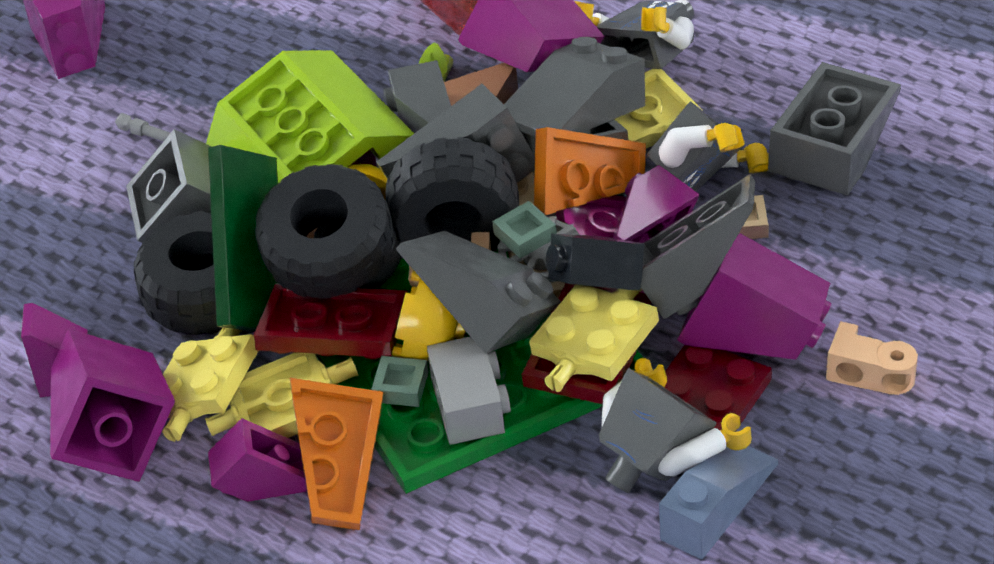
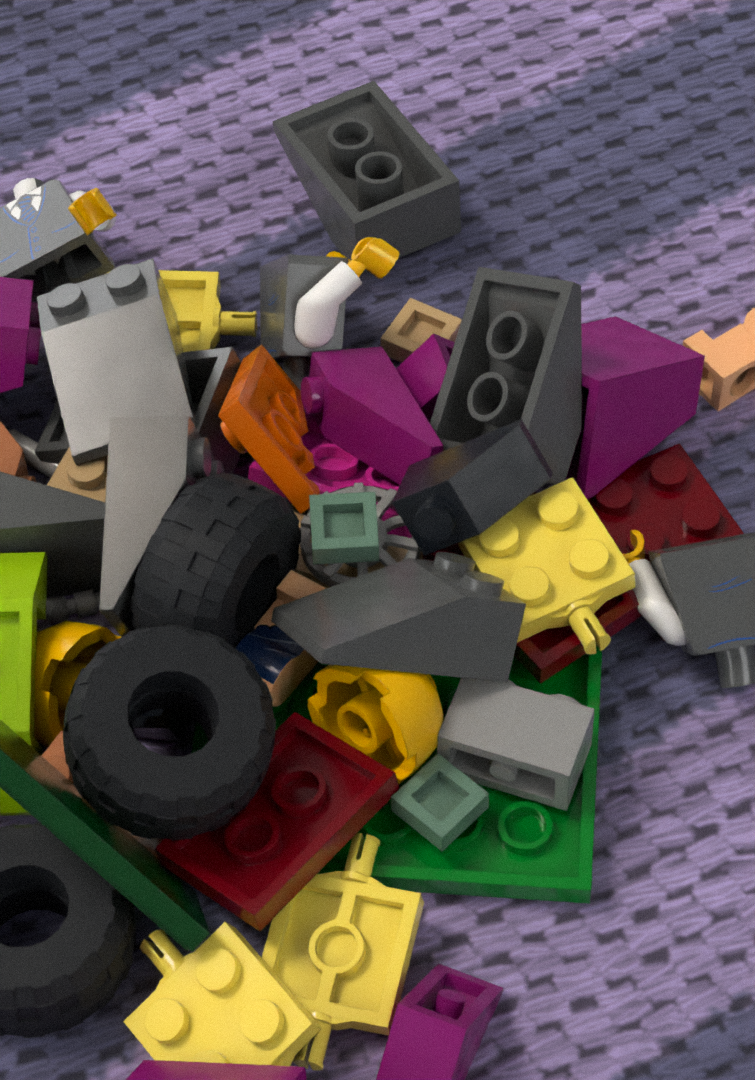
camera: 60 degrees left, 10 degrees up
(337, 447) = (493, 931): orange wing -> none

